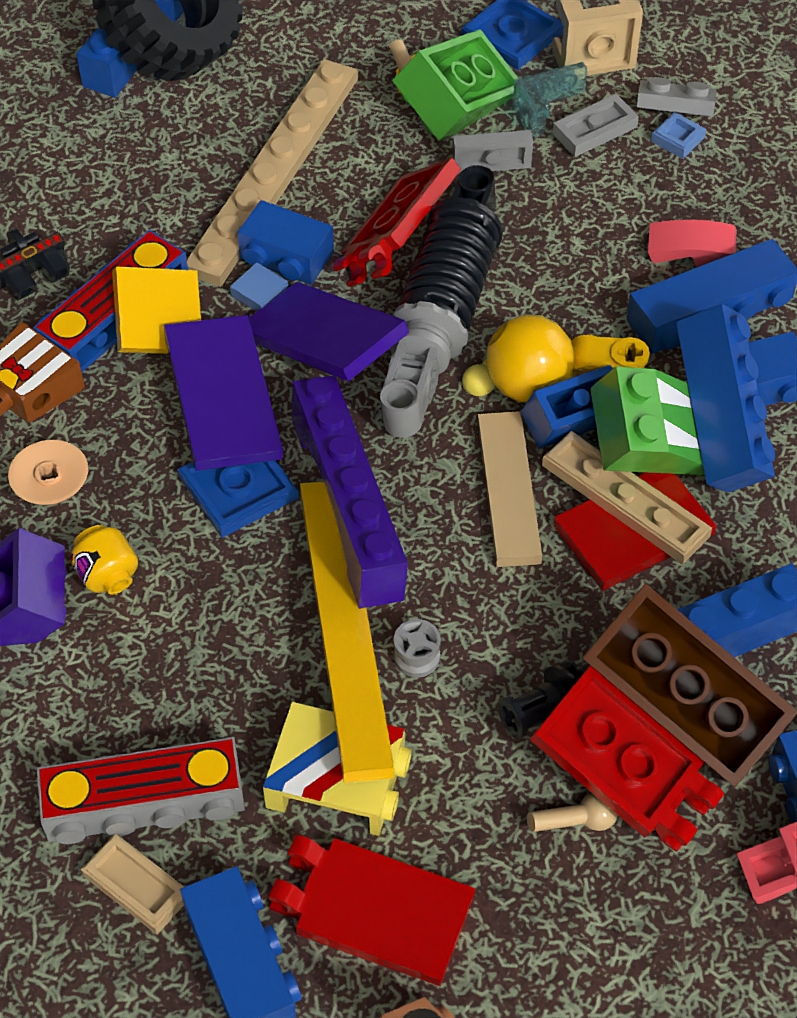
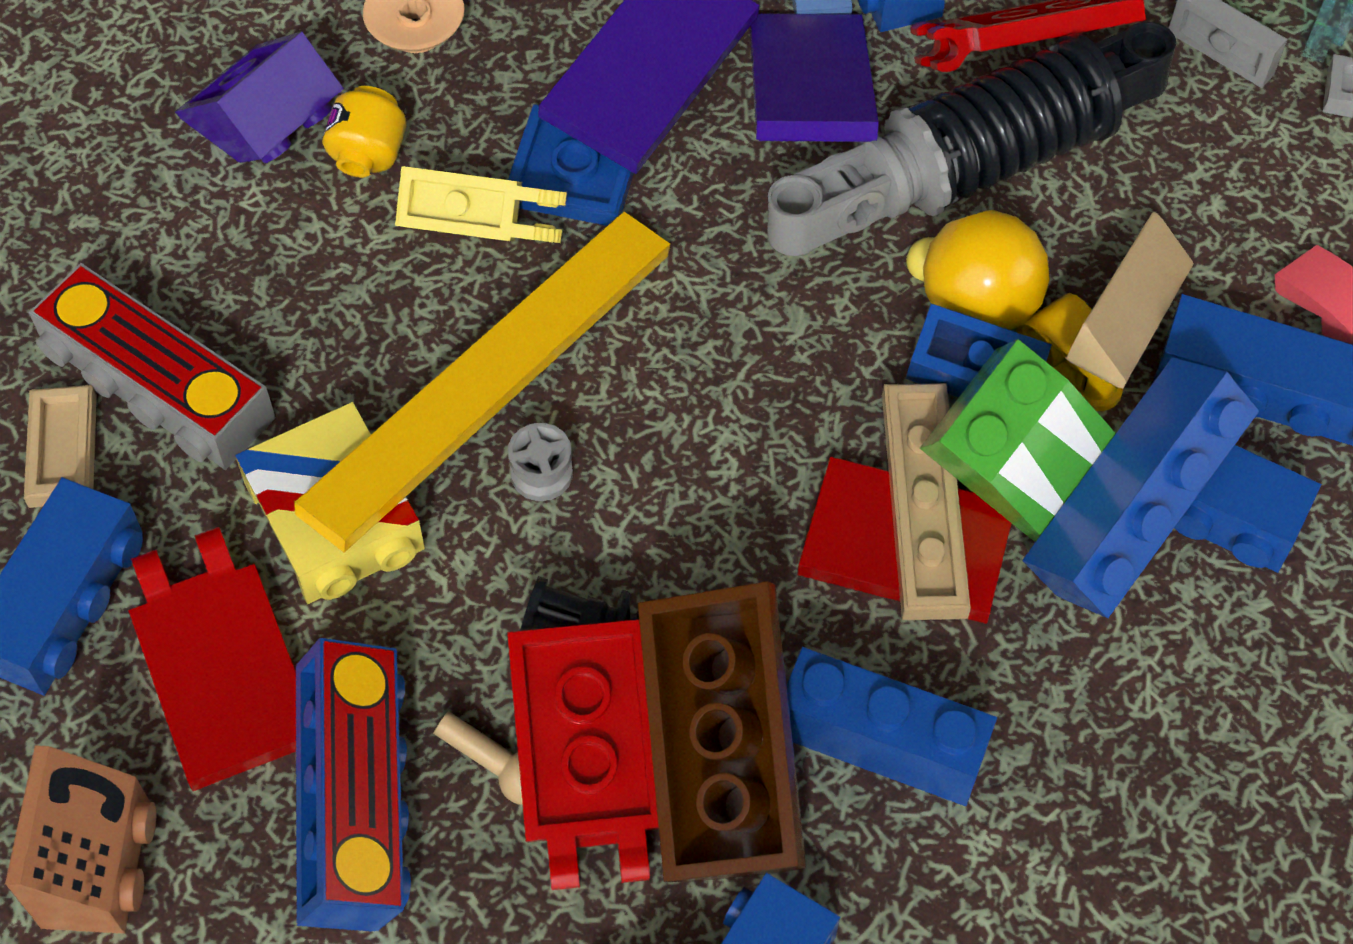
camera: 45 degrees right, 5 degrees up
(214, 549) = (471, 205): none -> light yellow hinge
(367, 534) = (589, 306): dark purple arch -> none
(509, 489) = (823, 391): tan tile -> none
(531, 894) = (349, 787): none -> brick
(612, 318) = (1132, 305): none -> tan slope

